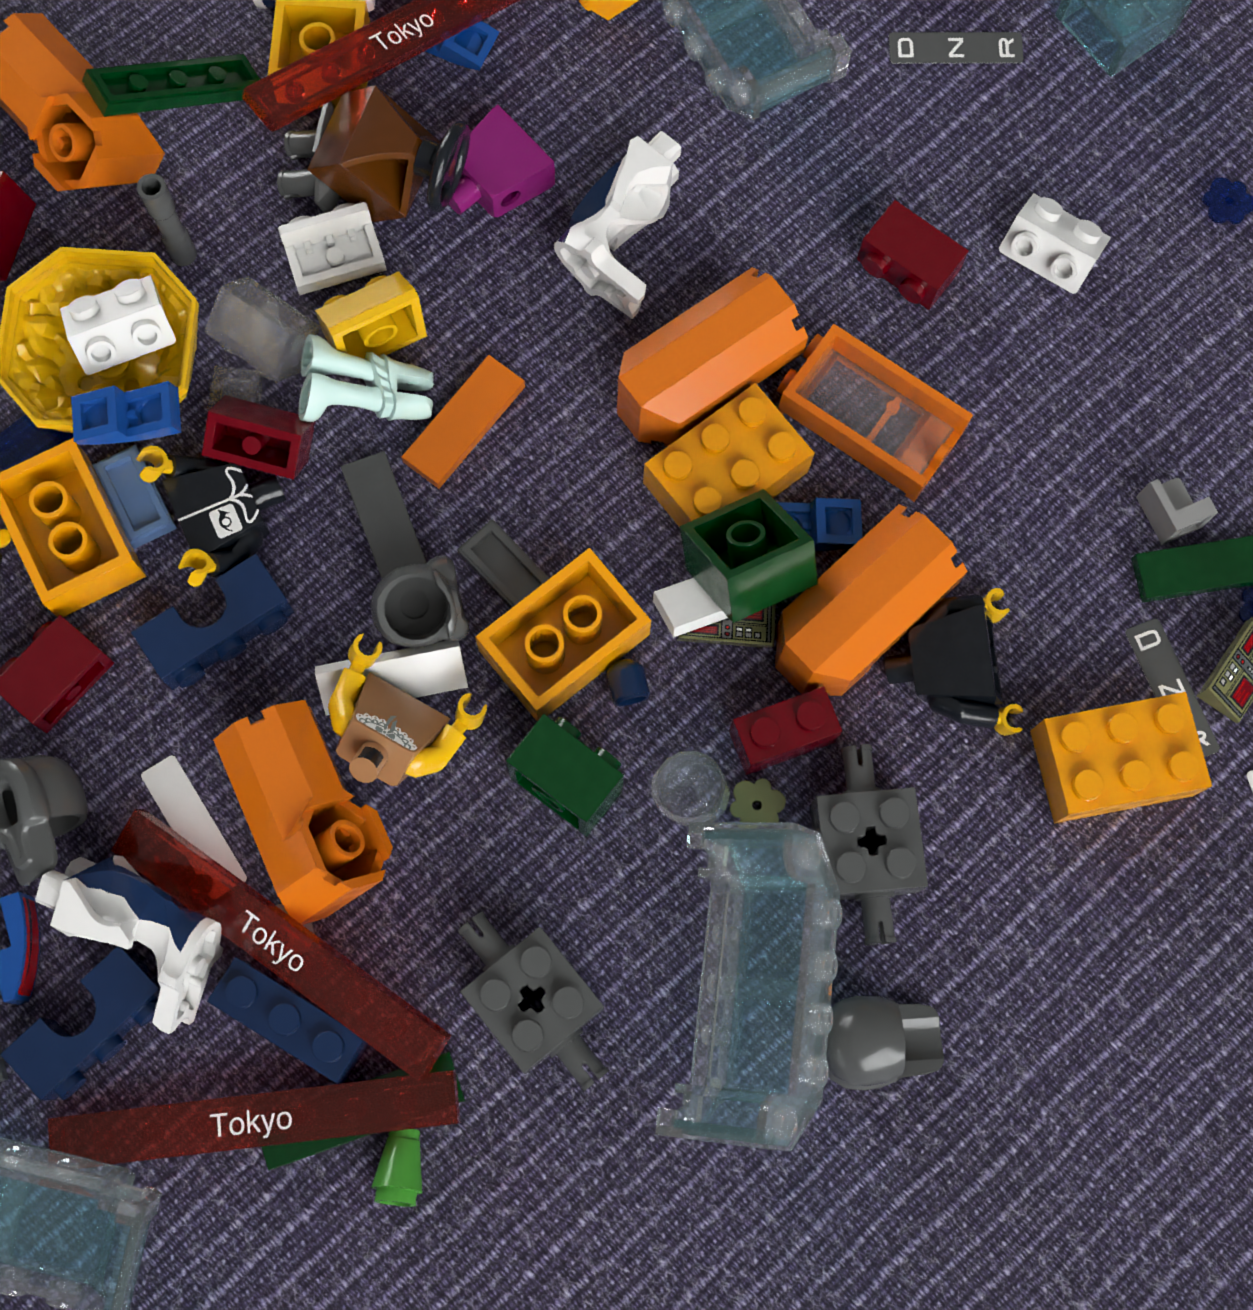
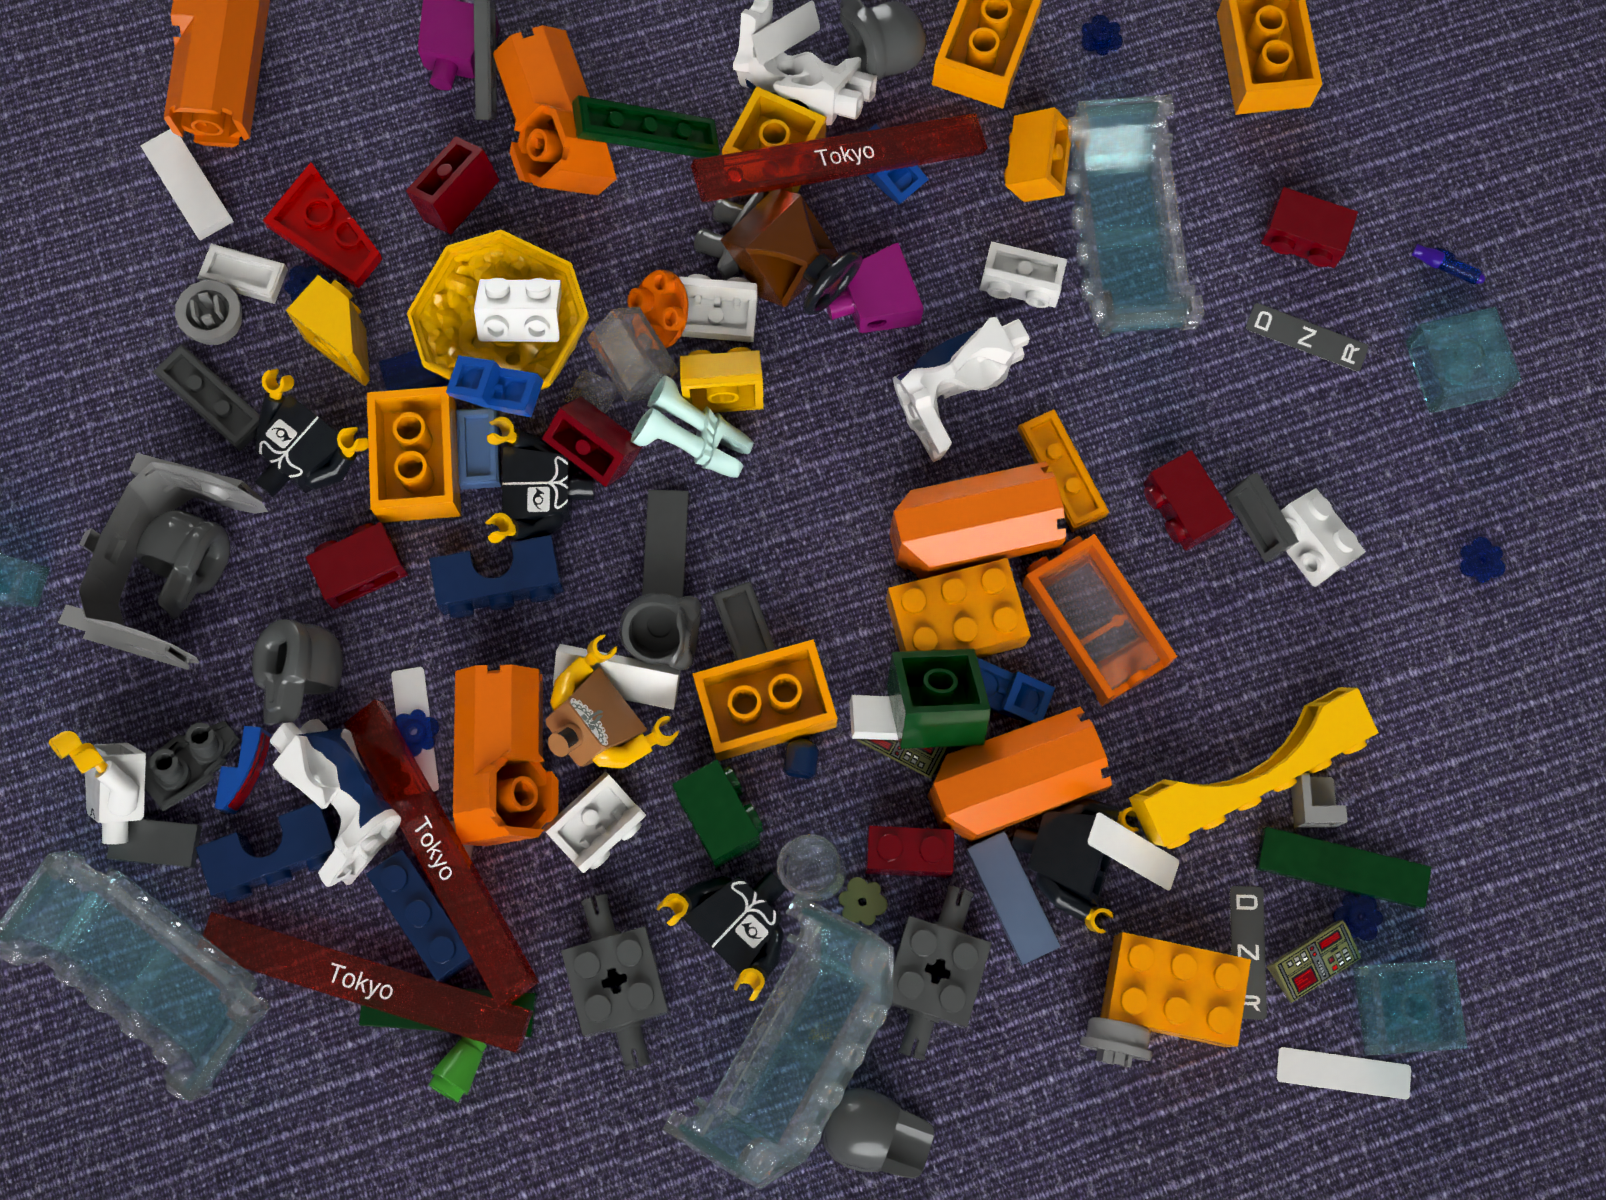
camera: 25 degrees right, 0 degrees up
(161, 208) = (591, 229): dark grey piece -> none
(205, 817) = (426, 729): none -> clear blue plant
(273, 261) = (663, 303): none -> orange dish
(436, 841) = (595, 823): none -> white bracket
(463, 421) = (762, 492): orange tile -> none
(634, 884) = (735, 923): none -> black torso
(641, 92) = (1023, 275): none -> white bracket
(739, 249) = (1049, 442): none -> light orange tile
(911, 735) = (1012, 898): none -> sand blue tile
(994, 243) = (1261, 517): none -> dark grey tile
(1016, 632) = (1133, 851): none -> white sticker
(1085, 833) = (1117, 1041): none -> light grey piece
(1150, 433) = (1324, 730): none -> yellow arch

